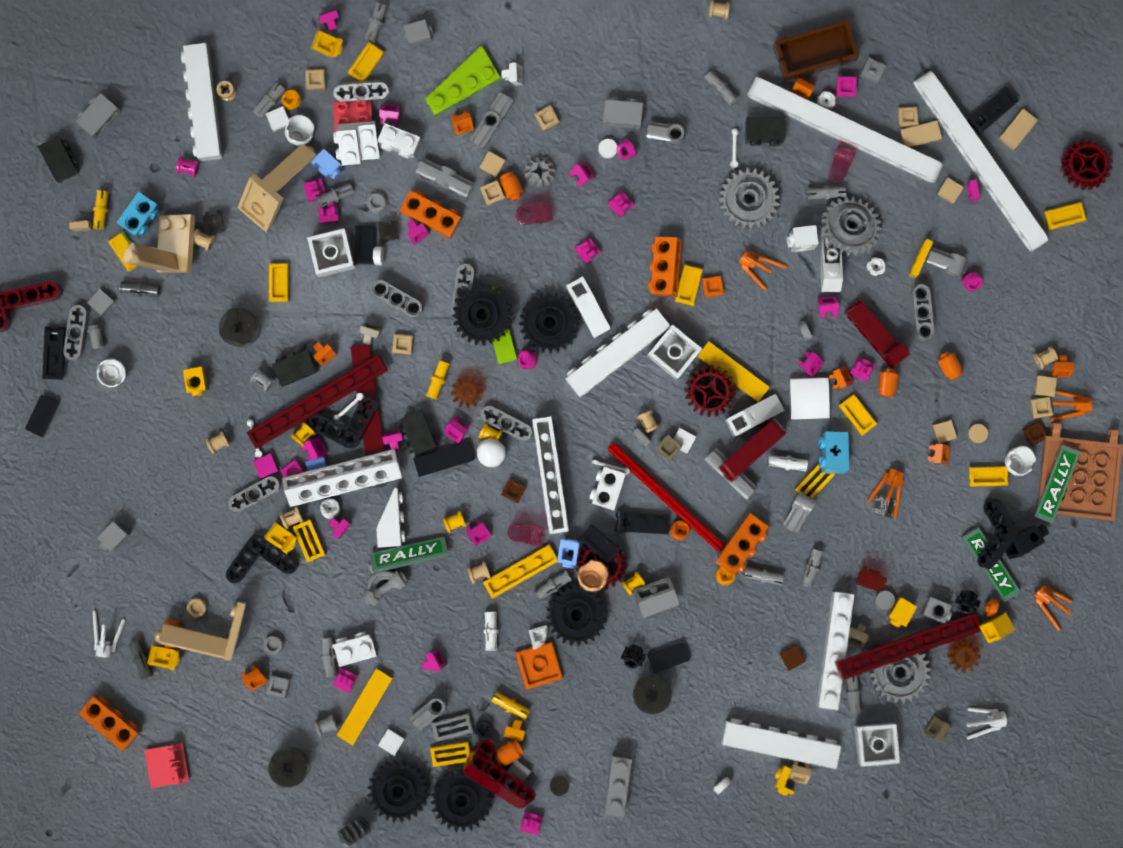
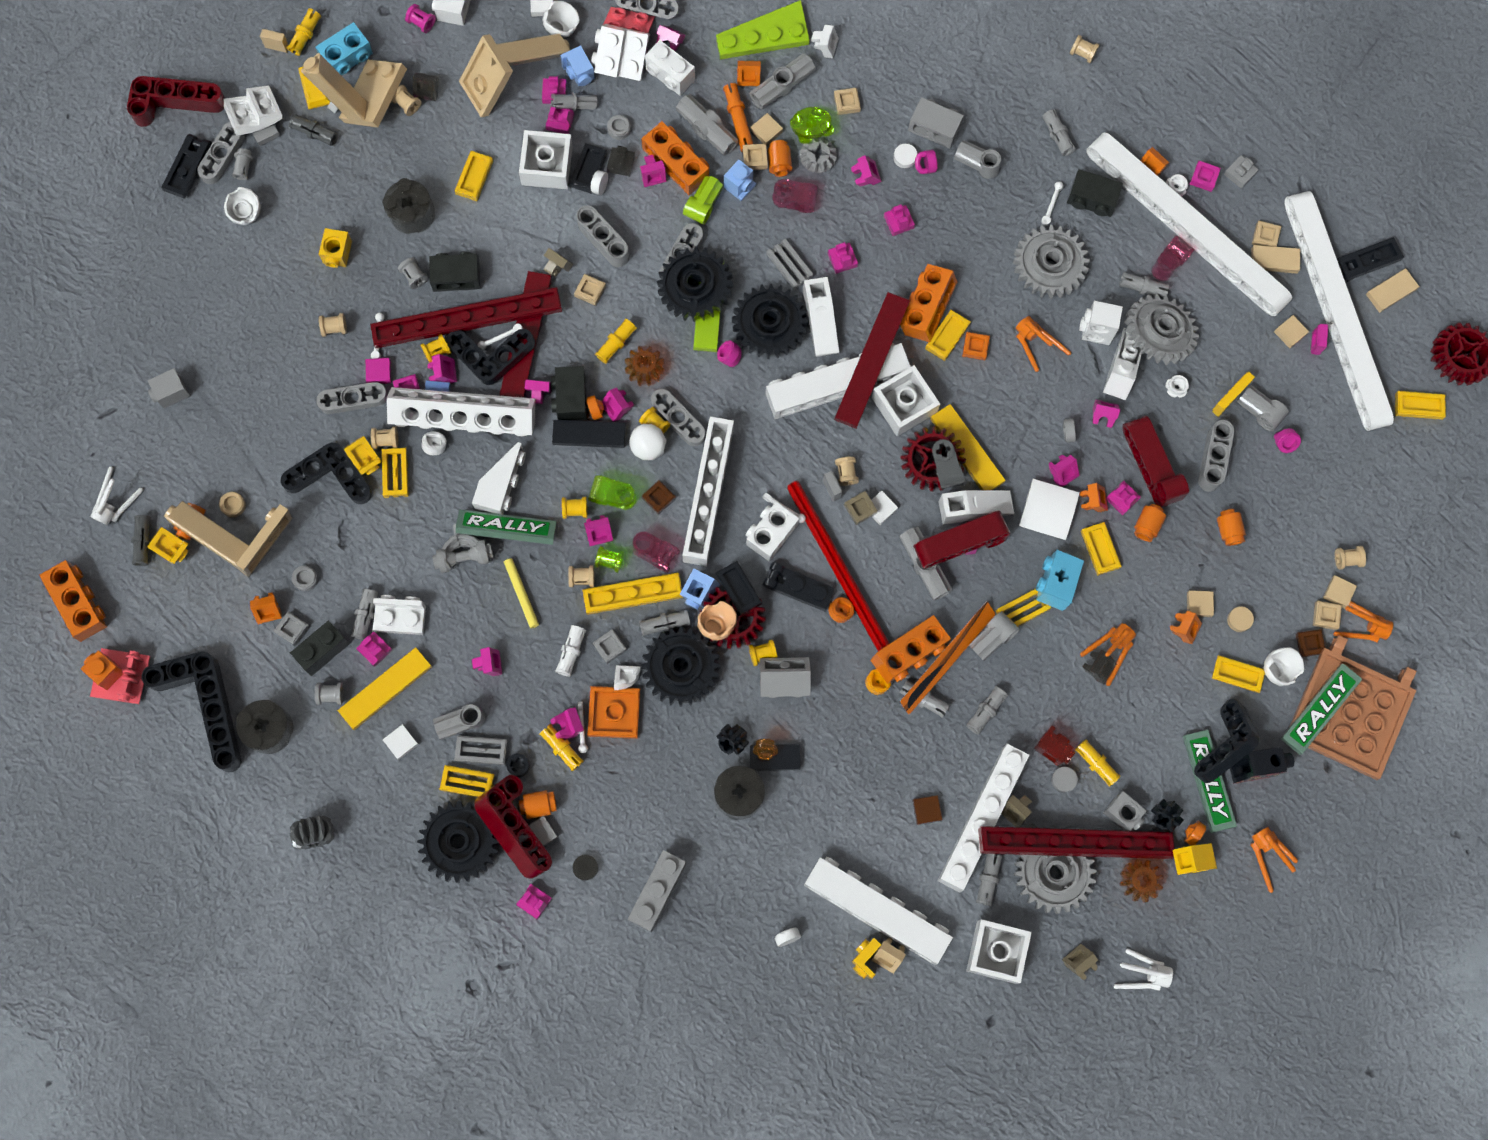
camera: 15 degrees right, 10 degrees down
(42, 416) = (144, 229): black tile -> none
(87, 290) = (252, 111): none -> white slope
(153, 767) = (101, 669): none -> orange brick
(238, 762) = (207, 701): none -> black beam
(306, 695) = (319, 648): none -> pearl dark grey brick
(323, 354) = (494, 268): orange tile -> none
(340, 527) = (437, 468): dark pink tile -> none
(387, 801) = (367, 798): black gear -> none
(438, 600) = (521, 593): none -> light yellow piece
(441, 437) = (595, 407): none -> orange tile
(463, 156) = (736, 109): none -> orange pin
(463, 246) = (701, 204): none -> lime piece
(475, 501) = (608, 492): none -> clear neon green piece
(486, 216) = (739, 180): none -> light blue brick
(494, 552) = (609, 559): none -> clear neon green bush
(510, 686) = (569, 724): none -> dark pink tile
(515, 732) = (555, 780): light orange tile -> none
(518, 617) = (609, 646): none -> light grey tile
(525, 699) = (582, 747): none -> white hinge
(526, 149) = (811, 124): none -> clear neon green piece
(549, 261) = (779, 249): none -> light grey tile
(639, 330) = (871, 360): none -> dark red tile
(660, 656) = (765, 748): none -> clear orange plate
(726, 399) = (948, 468): none -> dark grey piece
(771, 540) = (947, 658): none -> orange sticker
(788, 462) = (998, 575): white pin -> none
(815, 51) = (1182, 125): reddish brown piece -> none
(901, 612) = (1080, 800): yellow brick -> none
(905, 579) = (1097, 762): none -> yellow pin
(1062, 367) = (1367, 576): orange tile -> none

